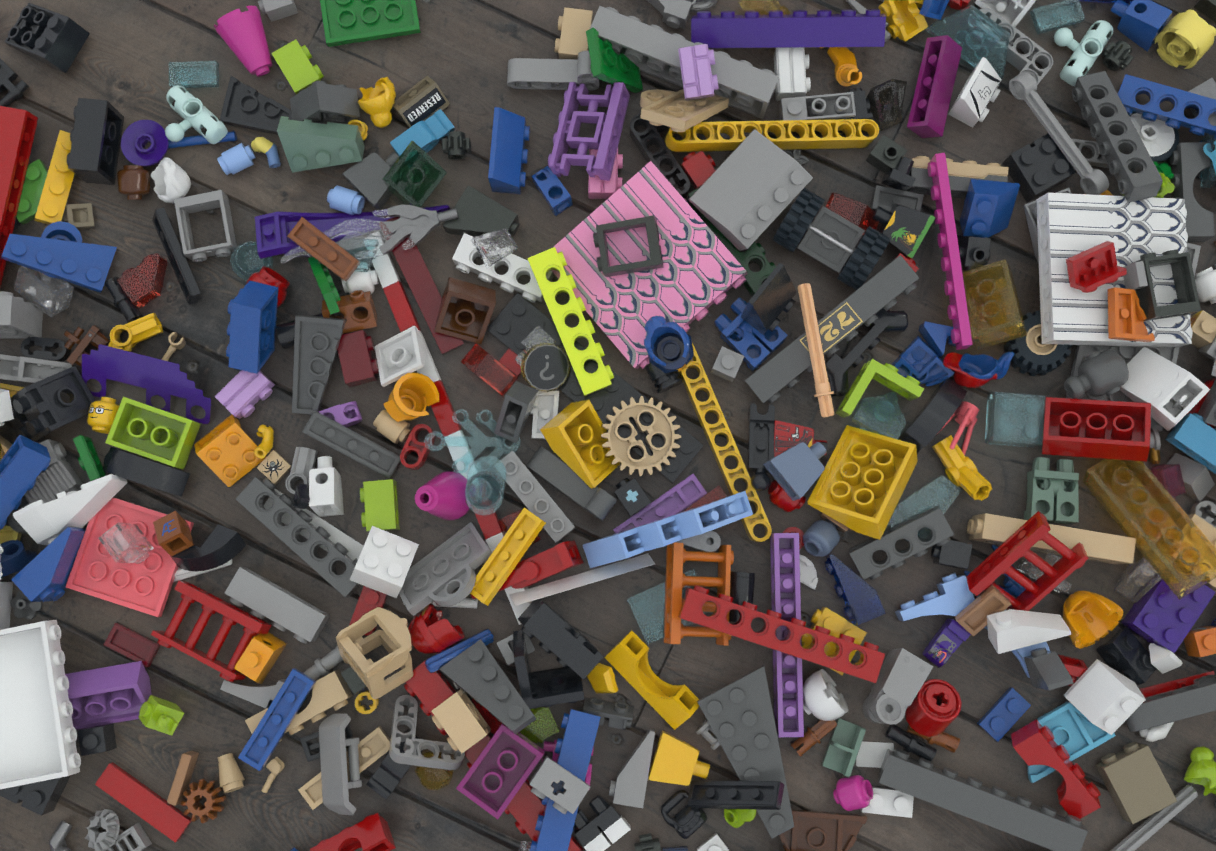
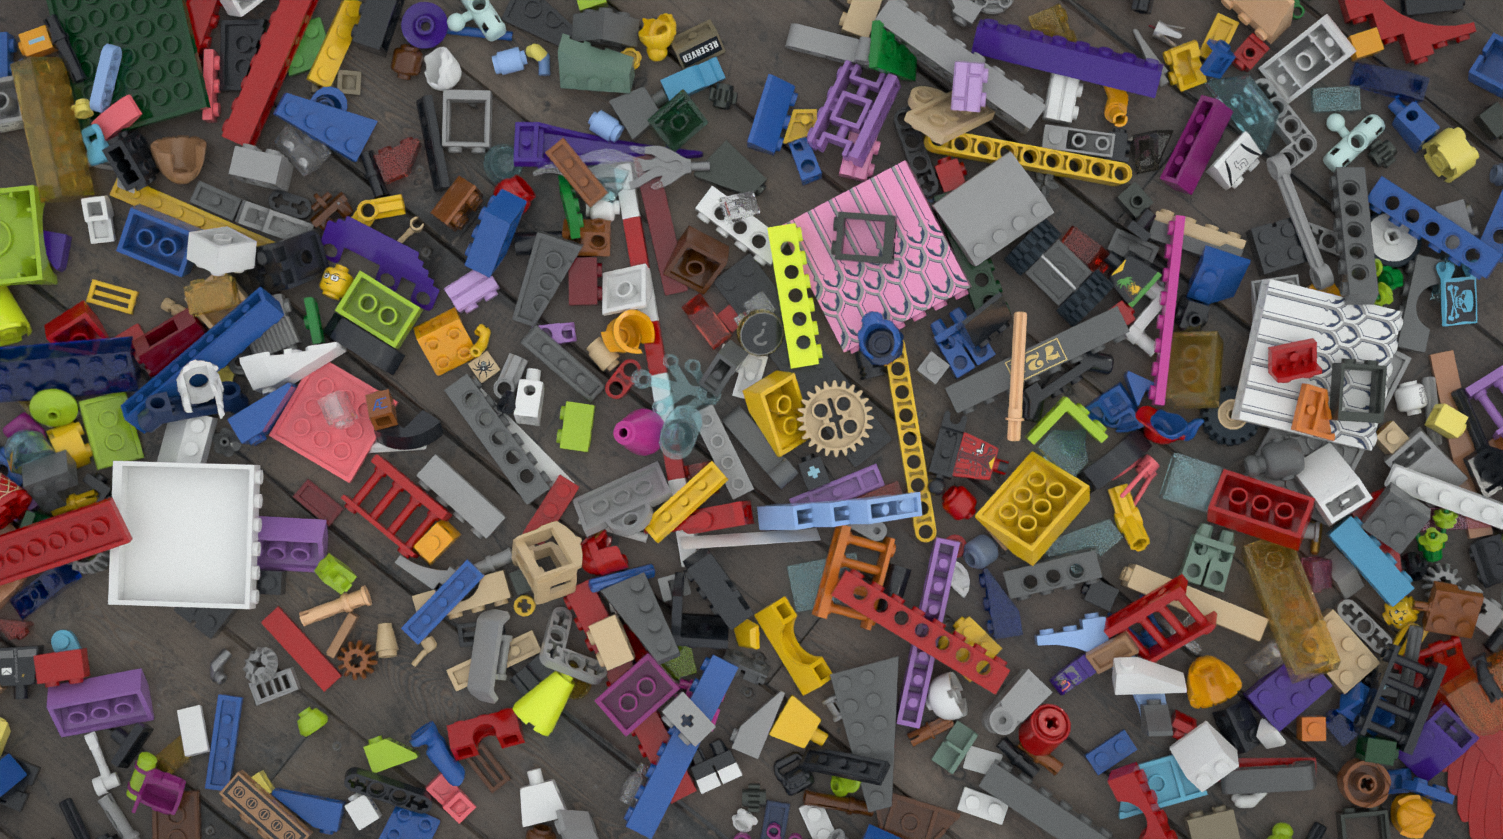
camera: 10 degrees right, 5 degrees up
(180, 743) = (345, 603): none -> light nougat pin
(211, 309) = (457, 204): none -> dark orange slope
(384, 562) = (570, 480): white brick -> none
(407, 801) = (545, 702): none -> neon yellow cone
(538, 156) = (800, 124): none -> yellow piece
(747, 834) = (833, 802): none -> reddish brown pin
(797, 468) = (973, 482): sand blue torso -> none
(853, 792) = (953, 789): dark pink head -> none
(924, 286) = (1137, 328): none -> white beam
(1135, 276) = (1330, 376): light grey tile -> none

